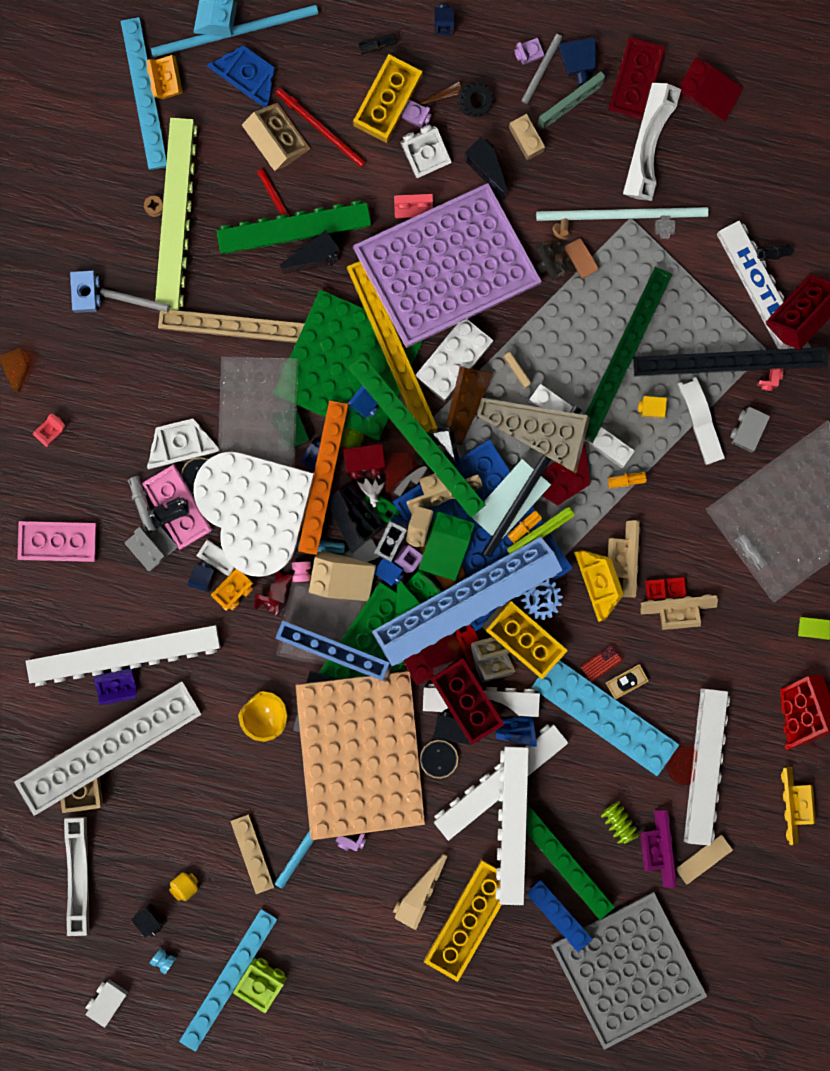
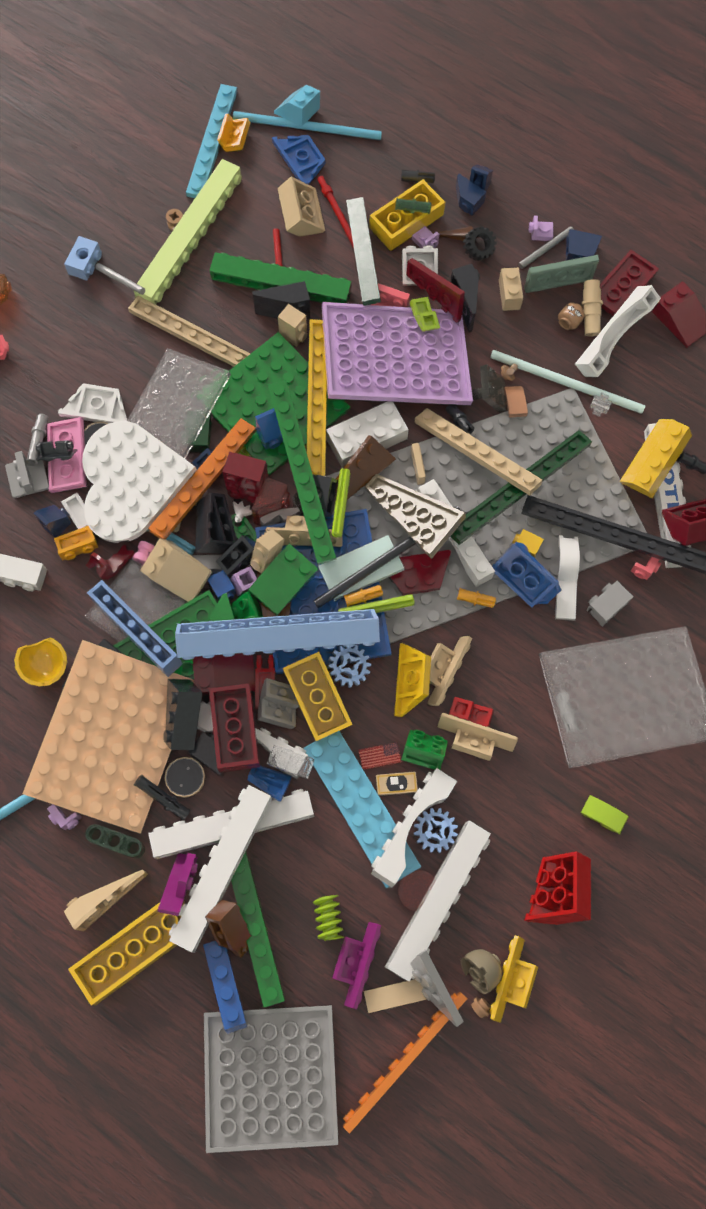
camera: 25 degrees right, 15 degrees down
(332, 277) = (292, 325): none -> tan brick
(363, 162) = (363, 251): none -> tile
(393, 94) = (413, 205): none -> clear green pin
(414, 708) = (182, 714): none -> black wedge
(416, 838) = (106, 837): none -> clear green beam
(437, 787) = (169, 803): none -> black pin
(439, 44) = (469, 195): none -> dark blue slope
(455, 175) = (437, 288): none -> dark red wing
(456, 210) = (424, 315): none -> lime slope
(466, 449) = (340, 505): none -> lime axle
(482, 853) = (178, 884): none -> magenta bracket
(528, 707) = (290, 762): none -> clear slope
(536, 304) = (459, 418): none -> black pin
(543, 870) = (229, 927): none -> reddish brown hinge
(568, 334) = (478, 451): none -> tan plate
(598, 141) = (571, 316): none -> medium nougat head
(616, 124) = (592, 307): none -> tan piece
(639, 640) = (424, 749): none -> green bracket
(654, 755) = (392, 862): none -> white arch
(662, 439) = (526, 575): none -> blue slope
(673, 716) = (441, 839): none -> light blue gear
(729, 917) = (397, 1067): none -> orange plate
(734, 843) = (434, 988): none -> light grey wing
(739, 266) = (657, 456): none -> yellow slope
(767, 807) = (483, 969): none -> dark tan cylinder
(778, 838) = (481, 1007): none -> medium nougat plate

